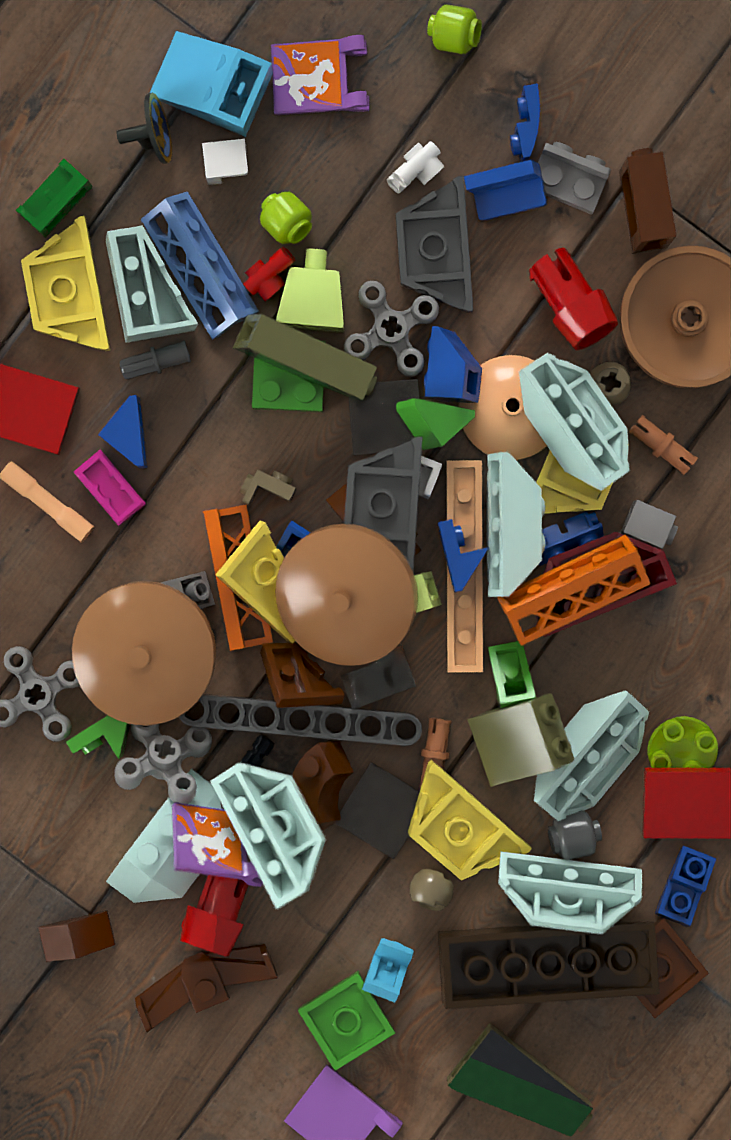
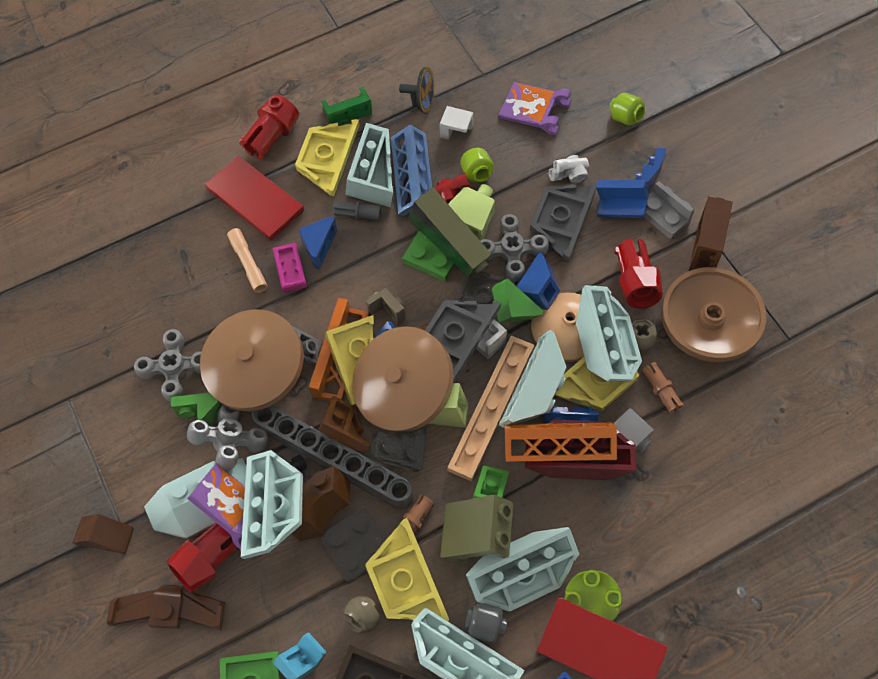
camera: 25 degrees right, 25 degrees down
(213, 81) = (472, 85): medium azure slope -> none
(459, 565) = (491, 395): blue slope -> none

